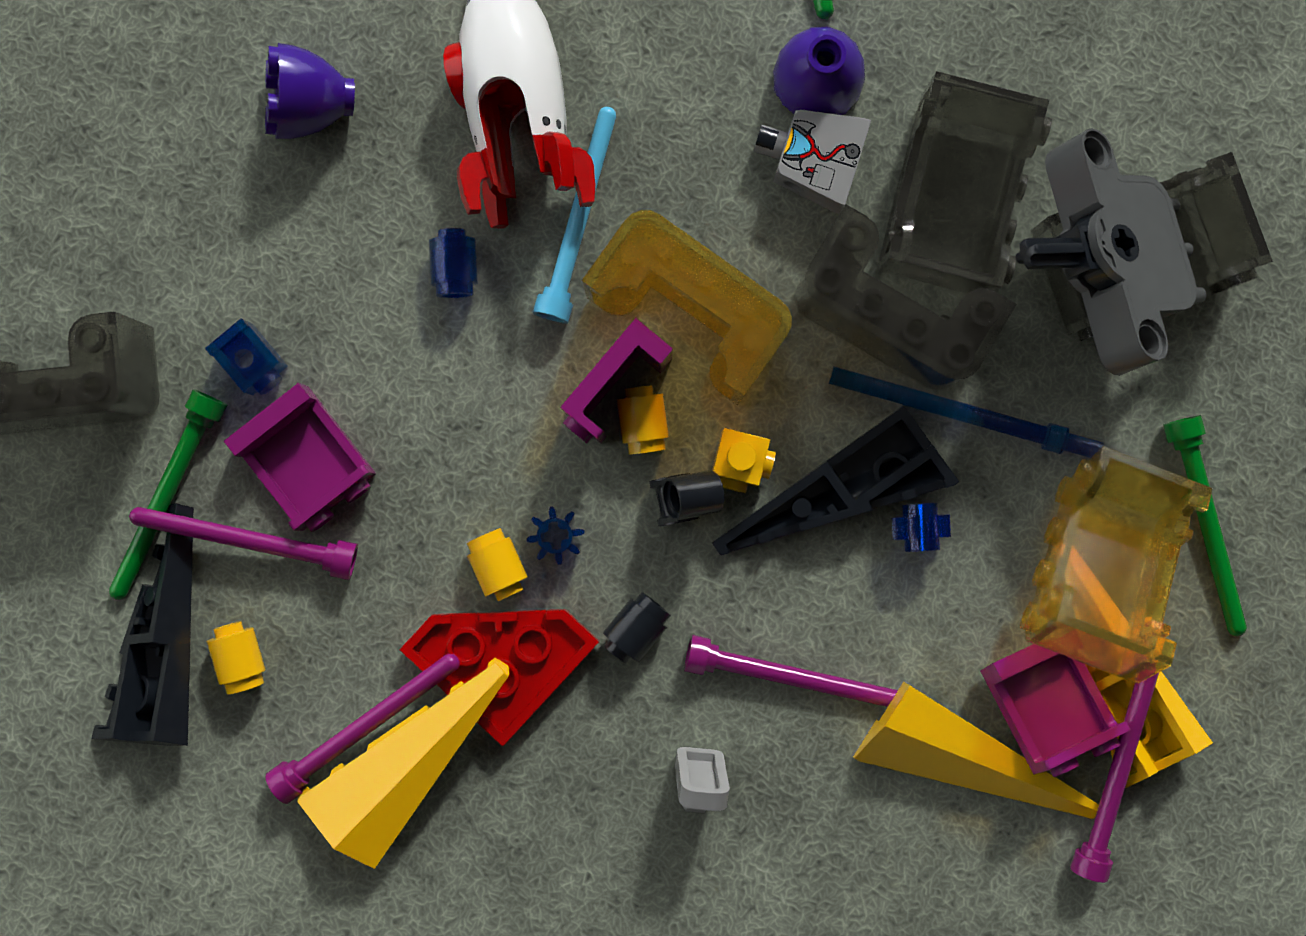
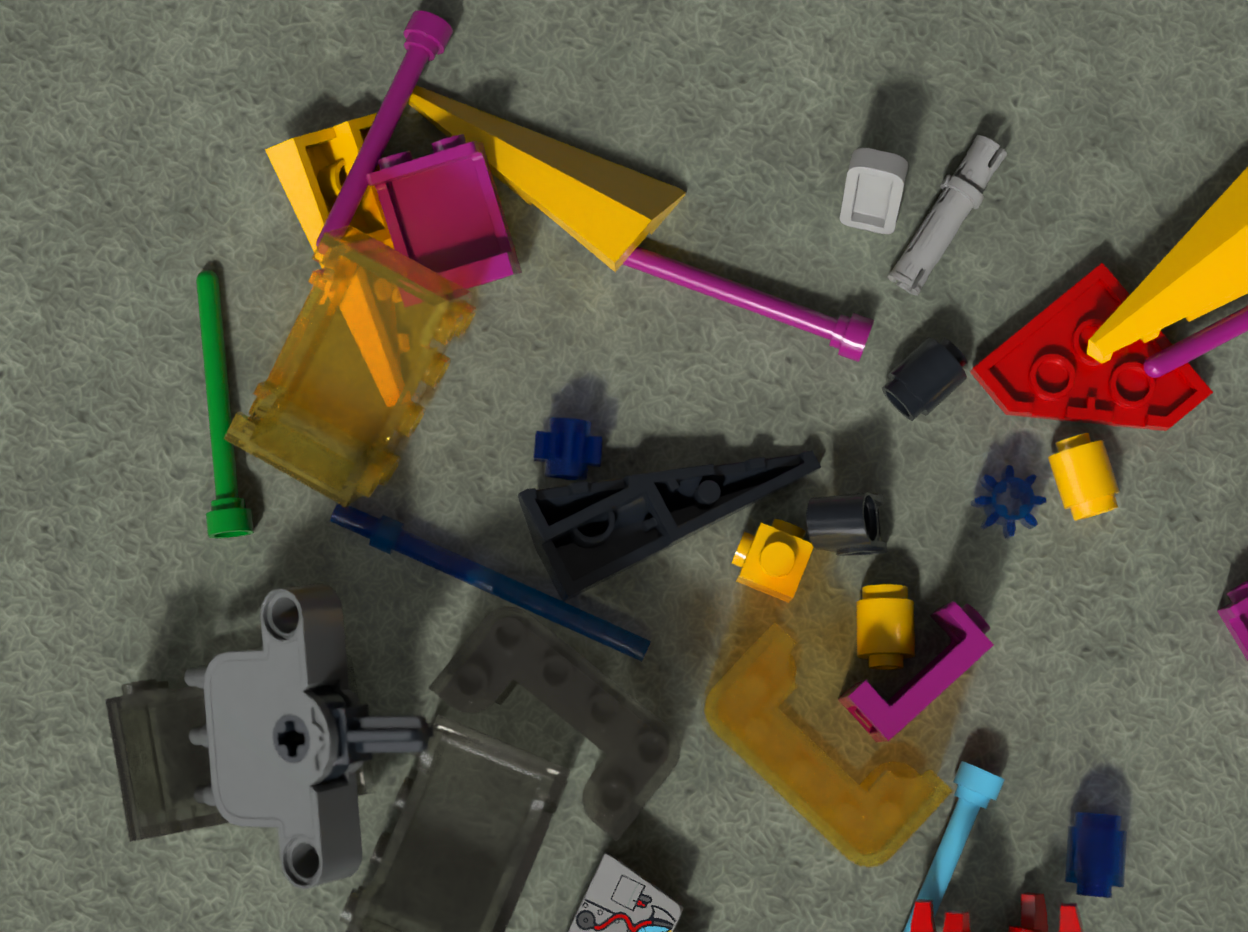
camera: 175 degrees left, 5 degrees down
(634, 770) = (953, 205): none -> light grey pin

